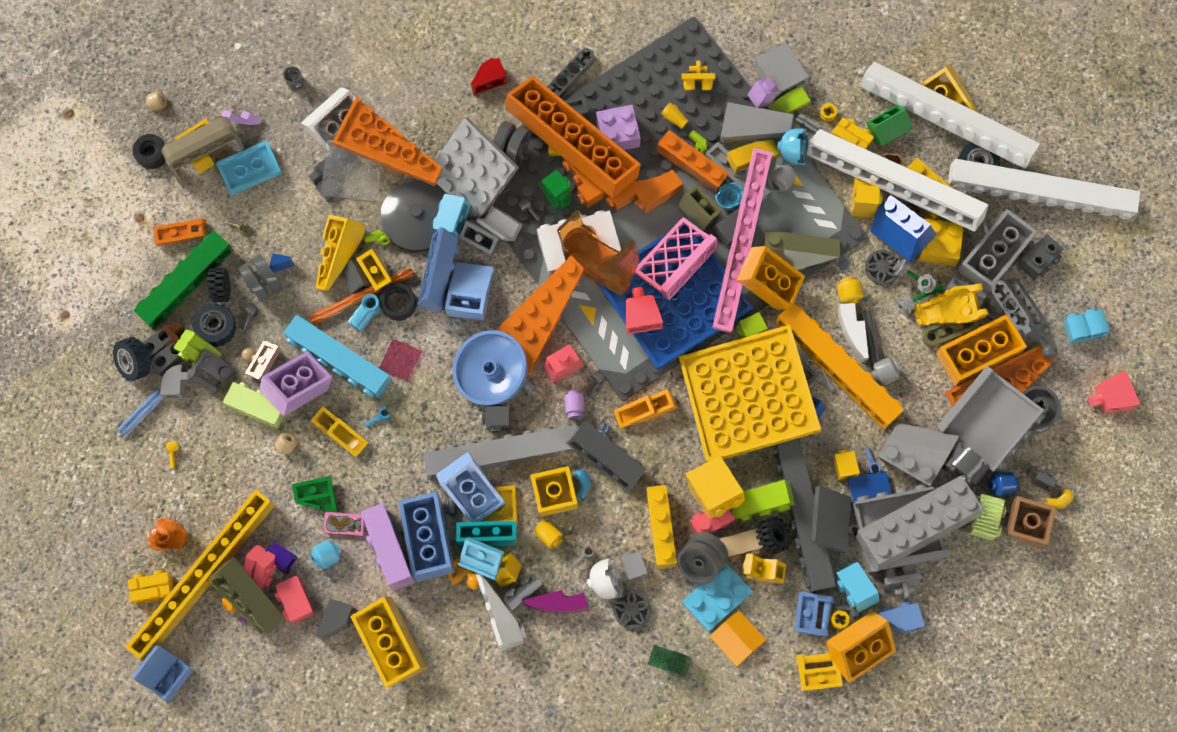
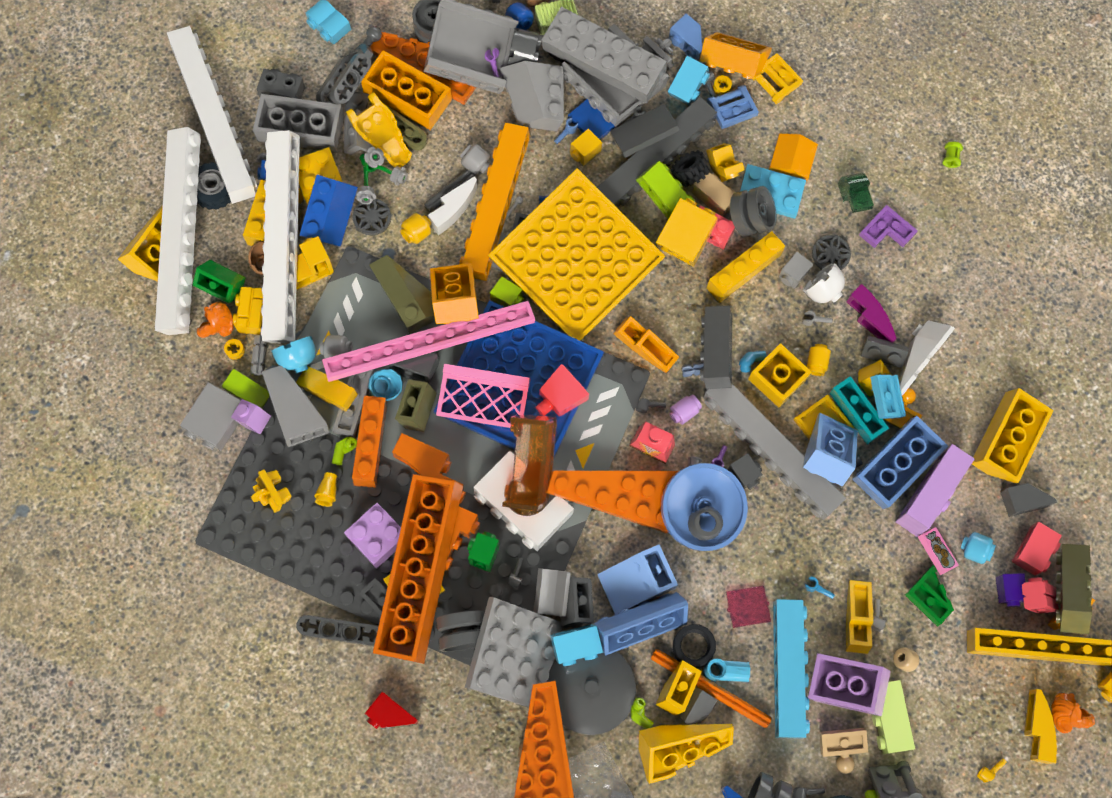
camera: 130 degrees left, 0 degrees up
(172, 505) = (1041, 727): none -> yellow slope
(325, 442) = (878, 623): none -> light grey hand
(478, 369) = (694, 526): none -> dark grey piece
(520, 407) = (718, 461): none -> medium lavender hand
(628, 673) = (888, 223): none -> medium lavender plate
(856, 107) = (218, 321): none -> orange hair
(973, 432) = (492, 59): none -> medium lavender hand

